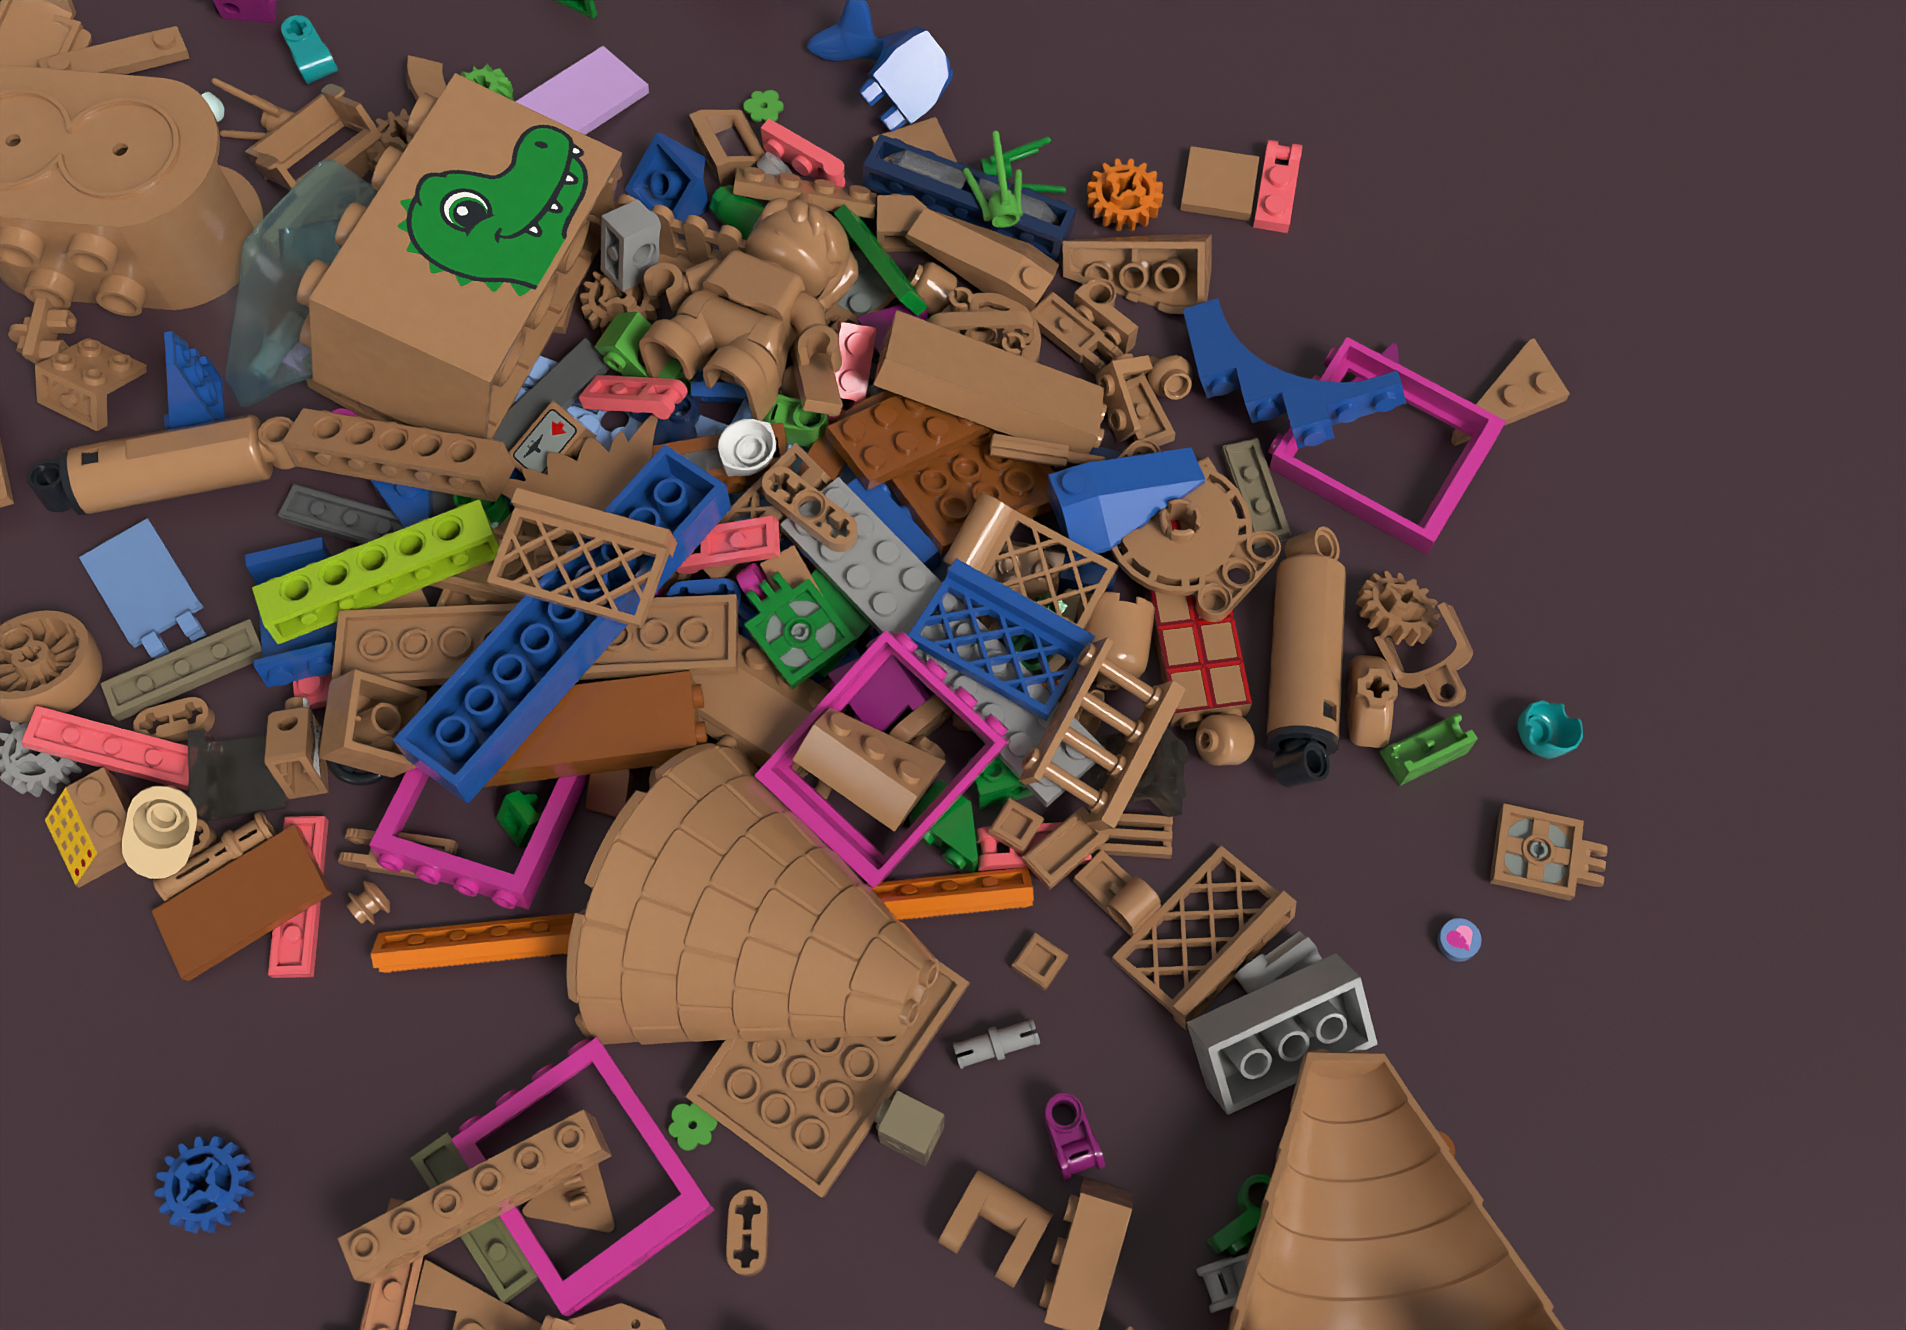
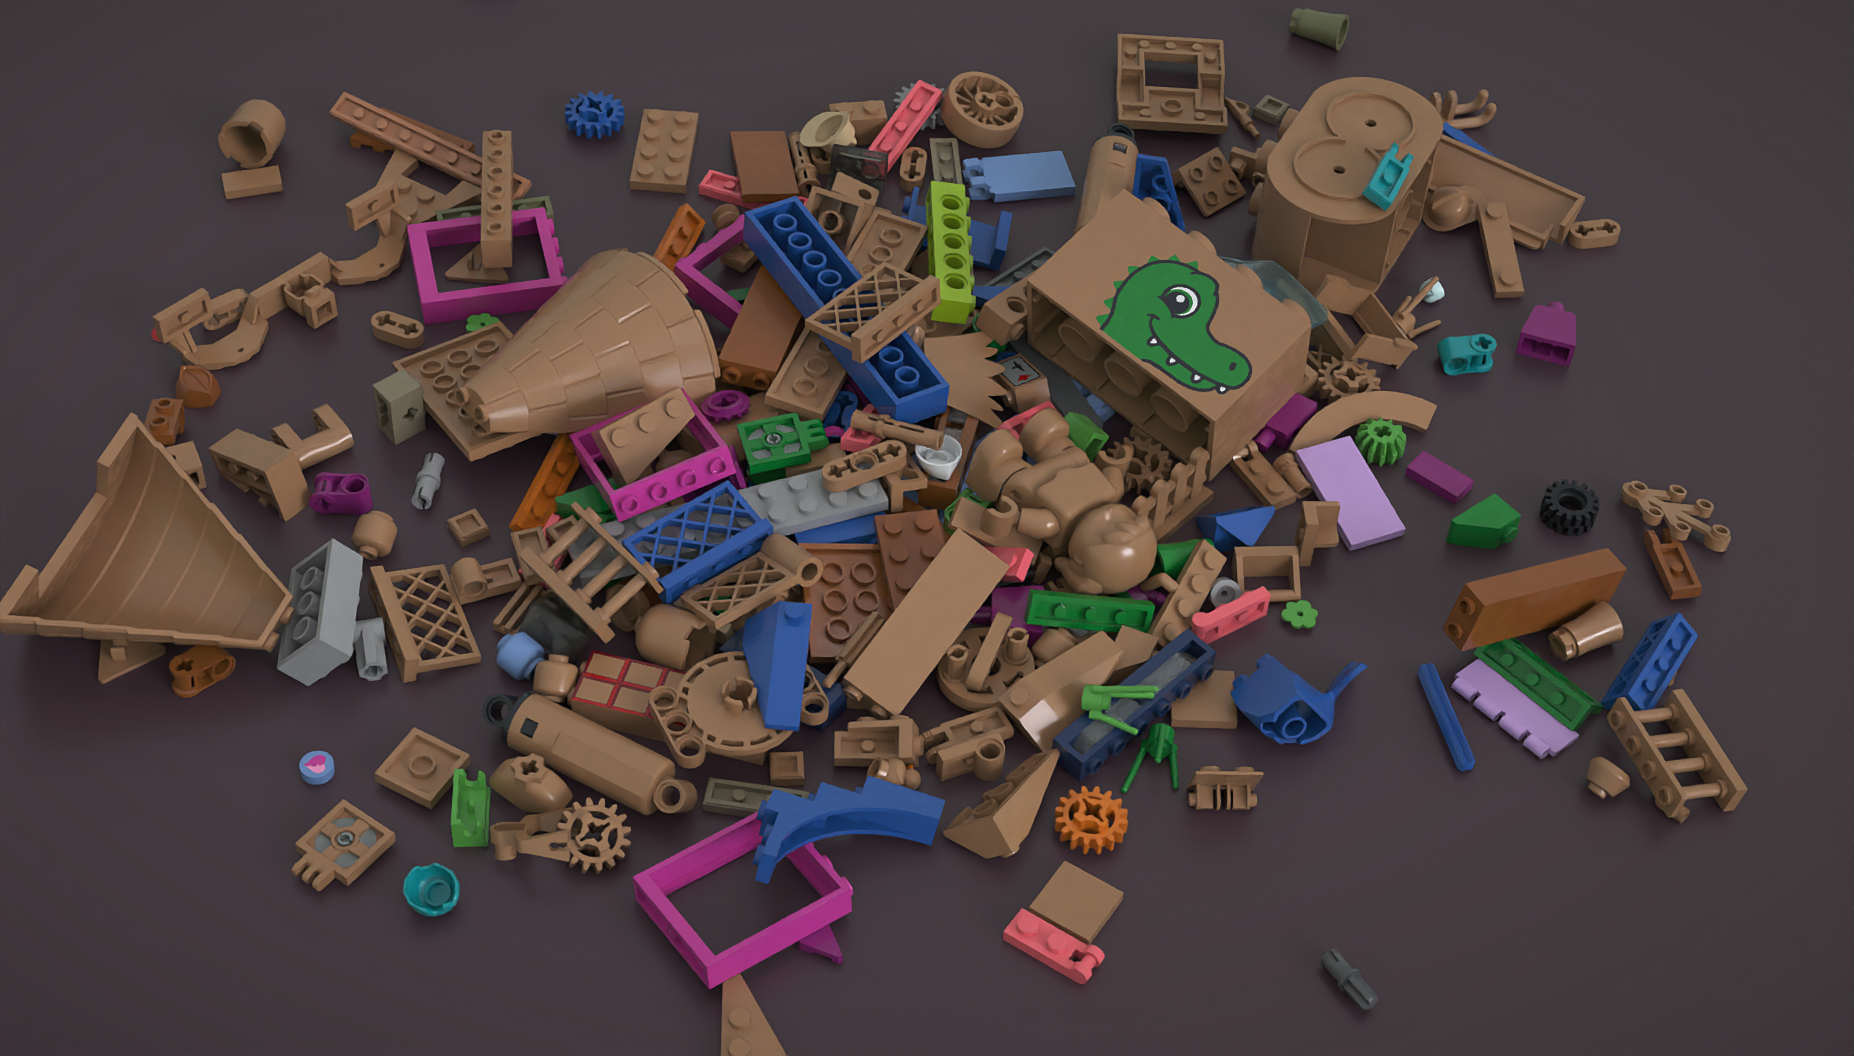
camera: 110 degrees right, 20 degrees down
(127, 84) = (1387, 178): none -> teal hinge
(242, 1058) = (664, 151): none -> medium nougat plate
(508, 39) = (1439, 477): none -> magenta tile
(629, 244) = (1161, 449): light grey brick -> none
(663, 105) = (1316, 528): none -> medium nougat panel
(732, 721) = (736, 403): none -> magenta gear
(741, 533) = (885, 427): none -> medium nougat pin
(1032, 94) = (1210, 778): none -> medium nougat hinge
(1117, 1055) = (374, 535): none -> medium nougat head
(1208, 797) = (519, 655): none -> medium blue head
(1403, 824) = (422, 768): none -> medium nougat plate

